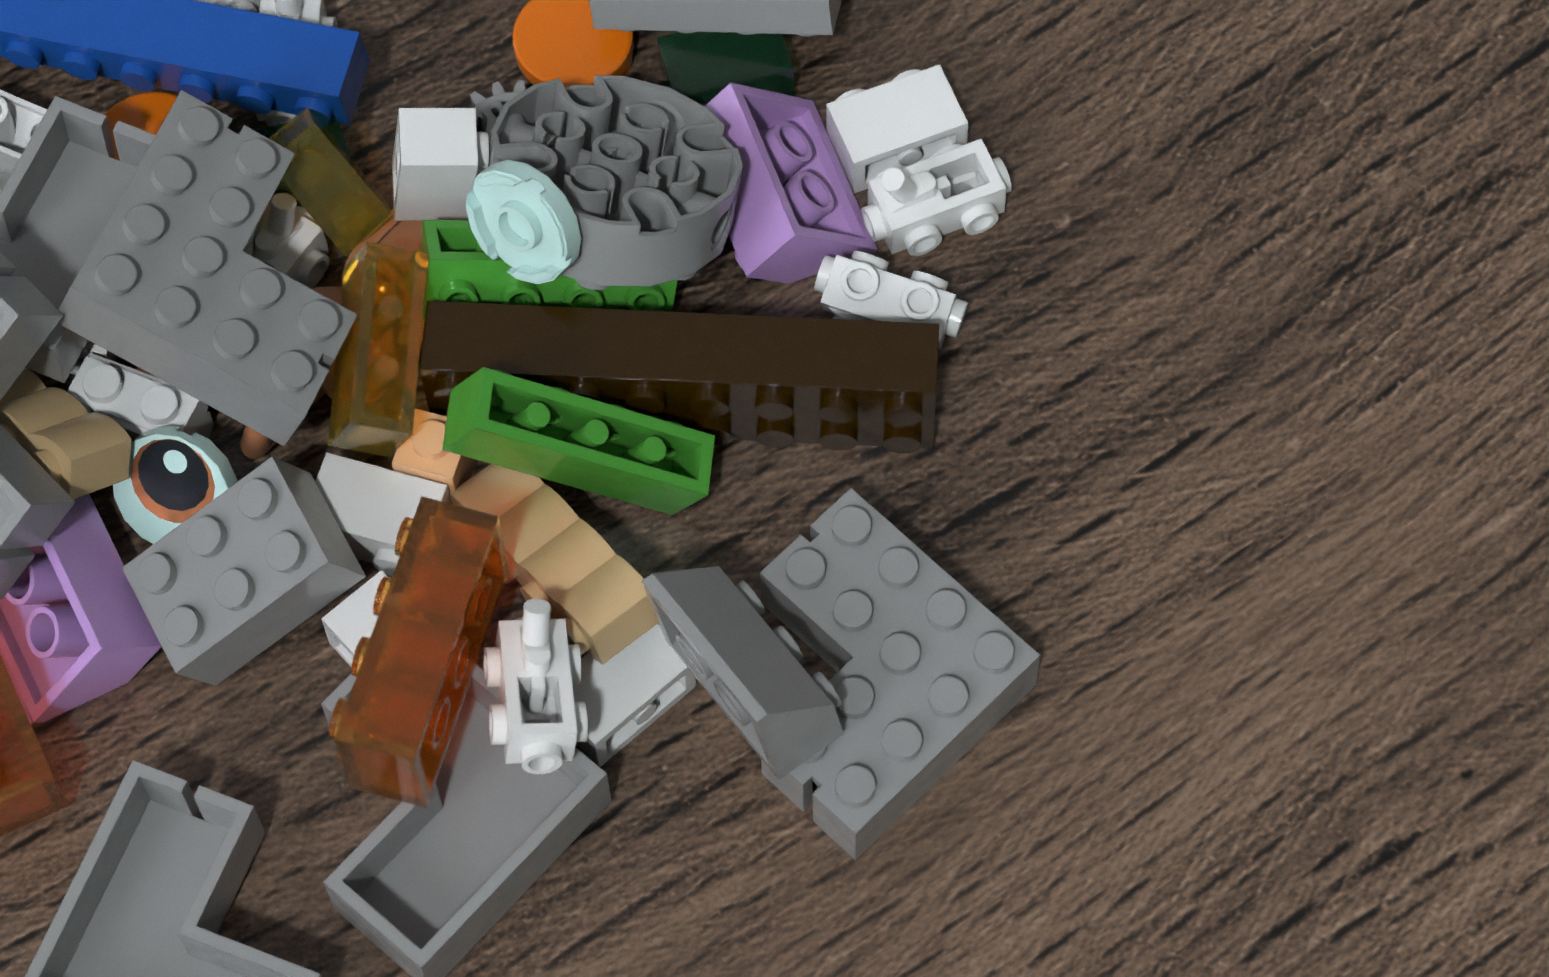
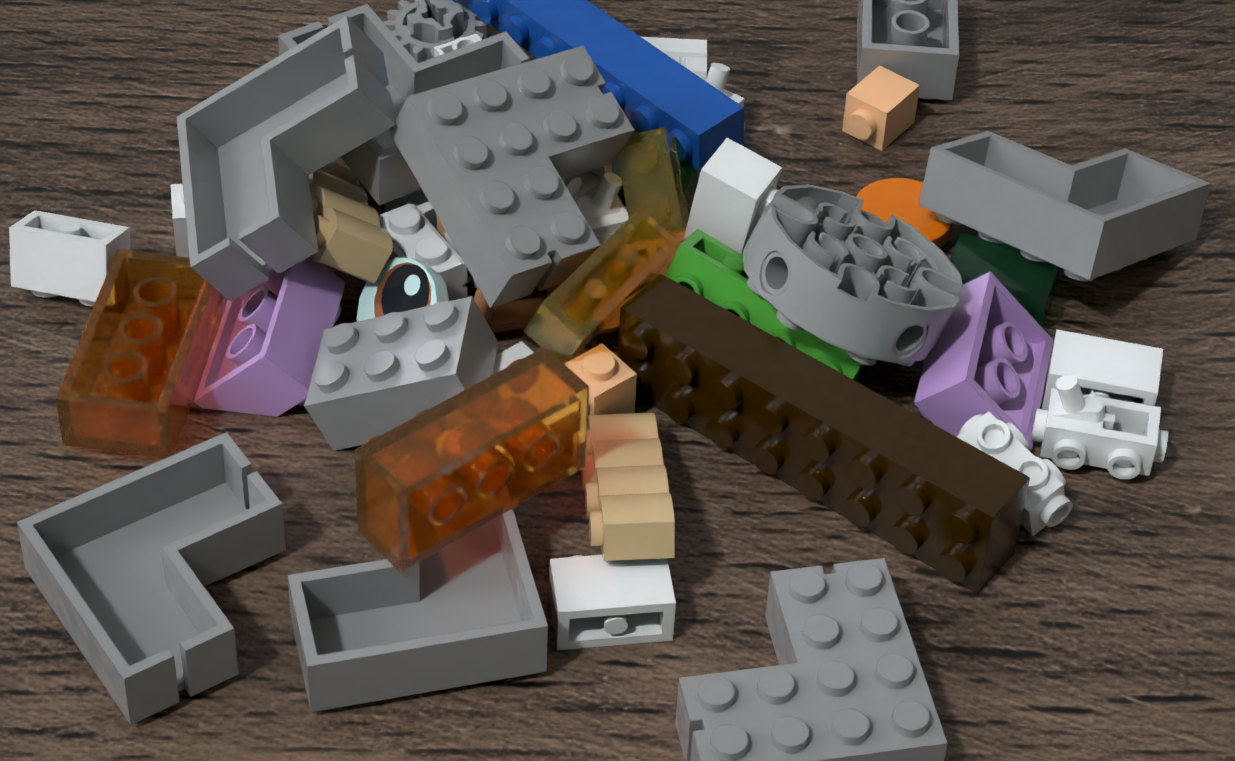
camera: 30 degrees right, 20 degrees down
(525, 201) = (760, 242): light aqua tile -> none
(535, 687) = (536, 532): white brick -> none
(578, 441) = (701, 416): bright green brick -> none
(746, 664) = (706, 604): light grey slope -> none

